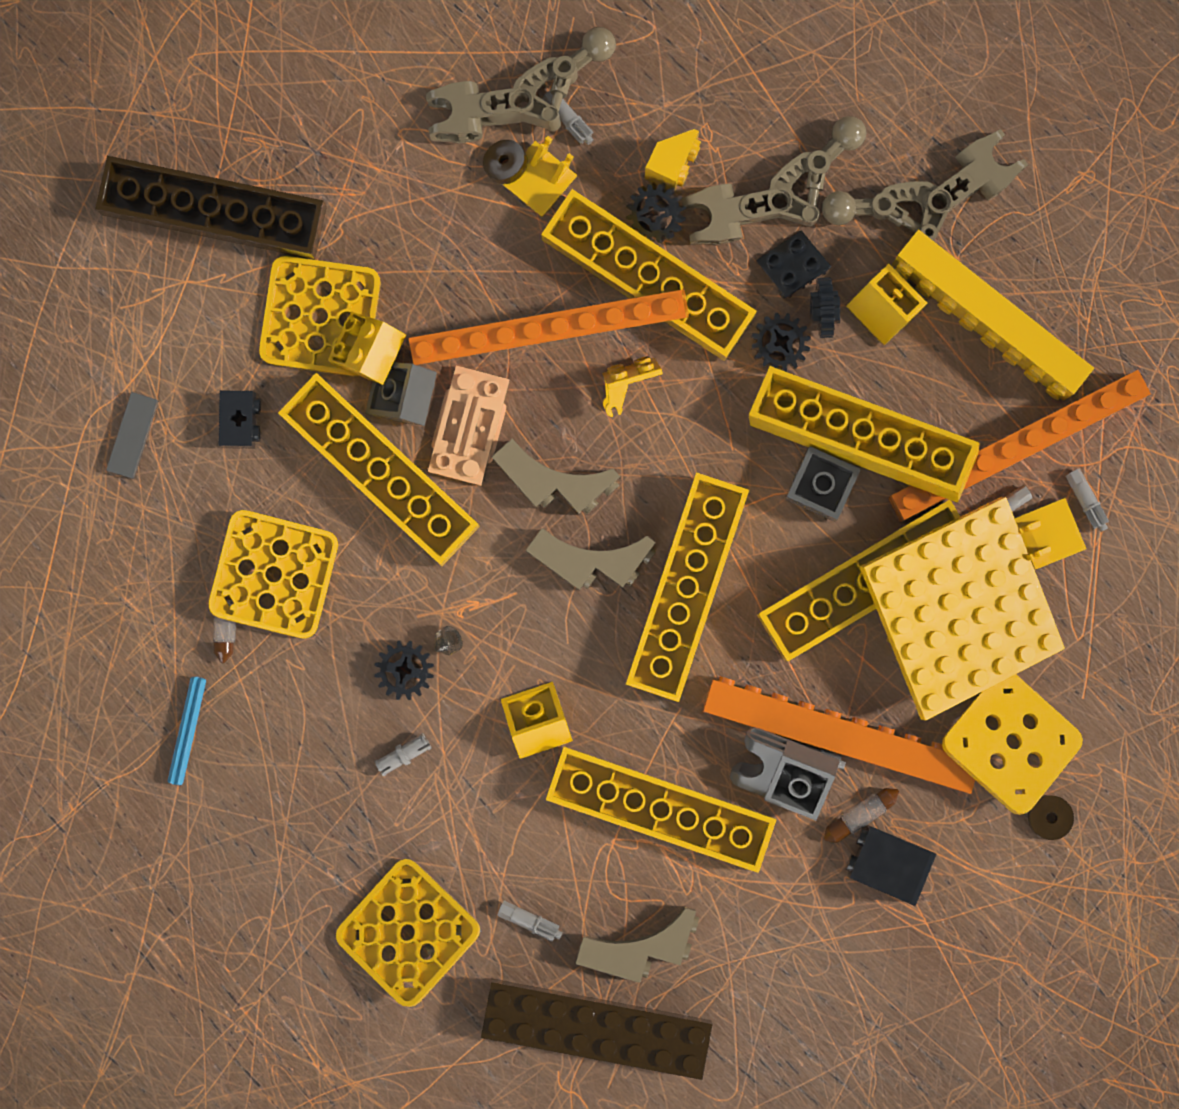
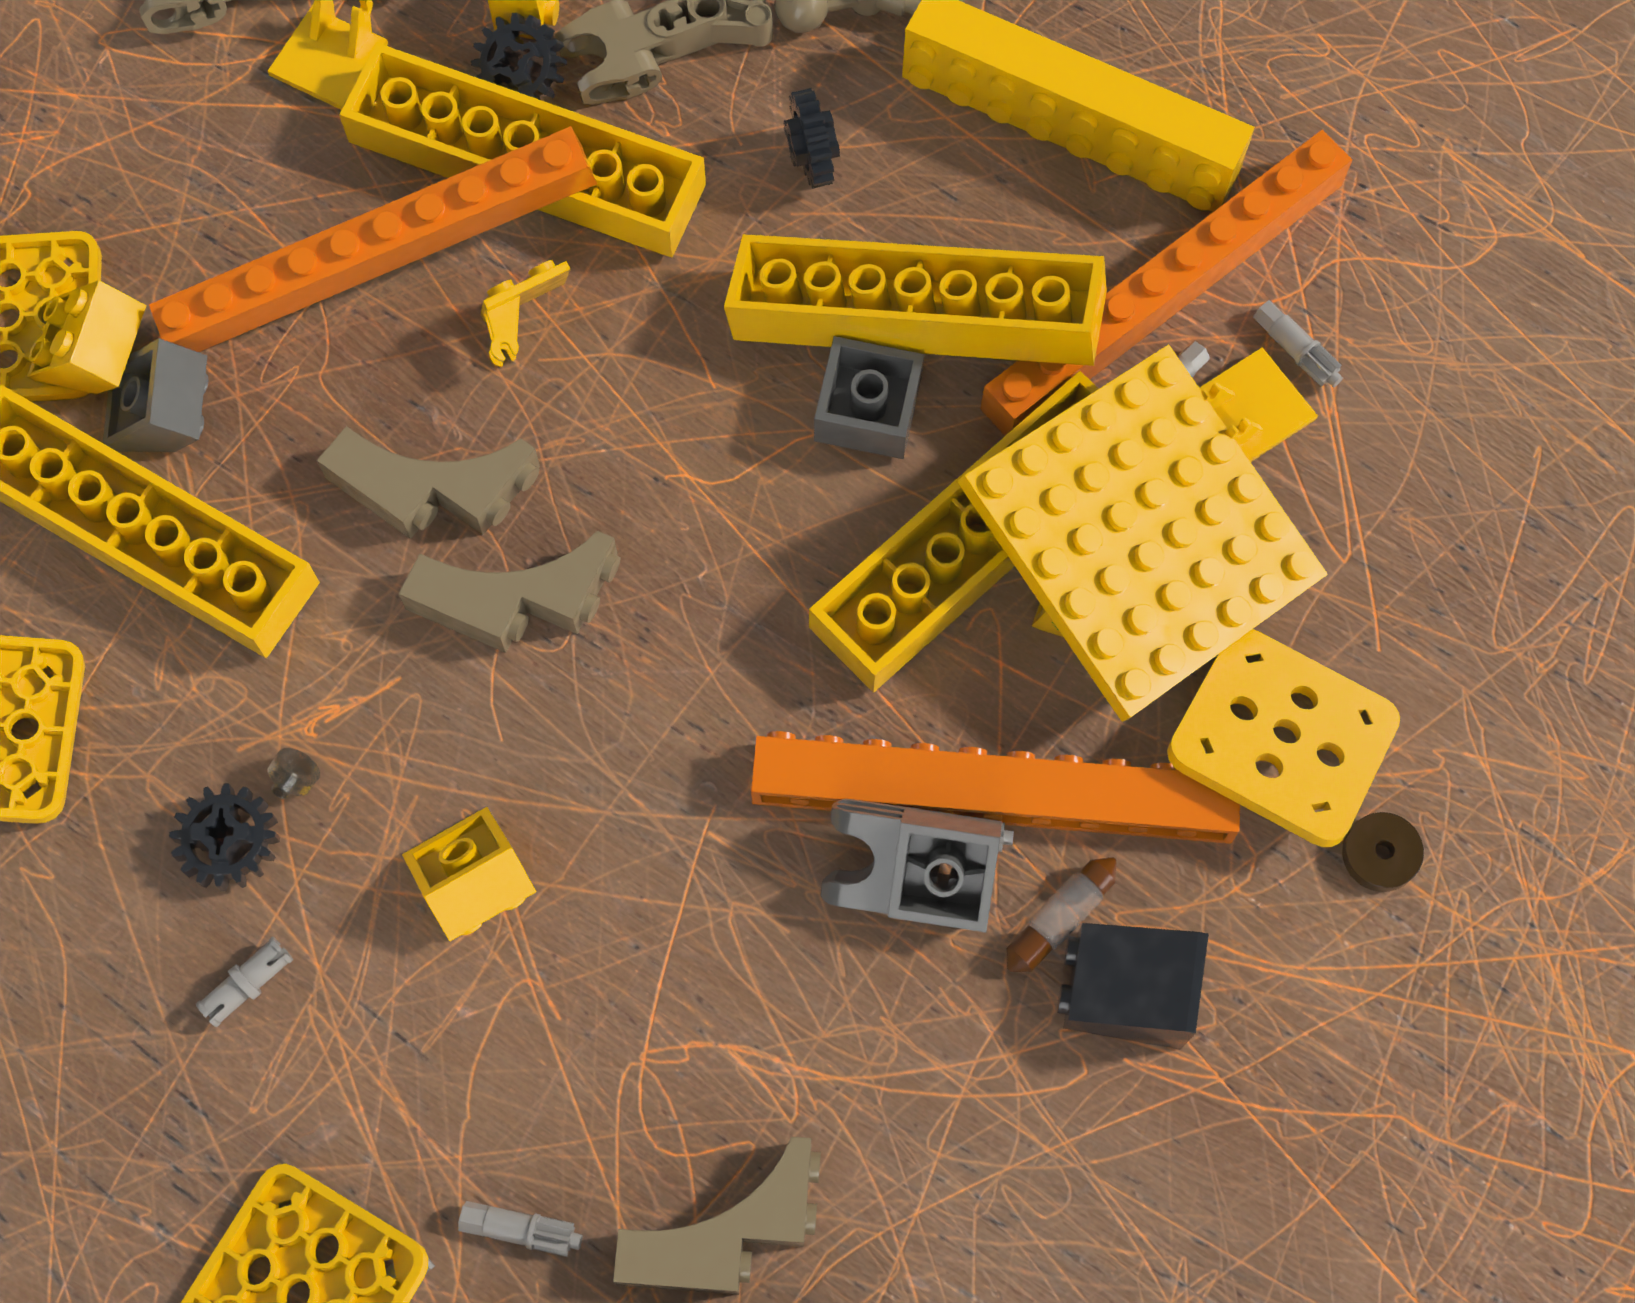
camera: 15 degrees left, 15 degrees down
(468, 425) = (276, 433): light nougat piece -> none
(512, 169) = (270, 40): dark brown piece -> none
(661, 809) = (710, 973): yellow brick -> none
(687, 587) = (680, 604): yellow brick -> none
(790, 336) = (754, 206): black gear -> none
(793, 264) = (751, 101): black hinge -> none
(886, 304) = (908, 120): yellow slope -> none

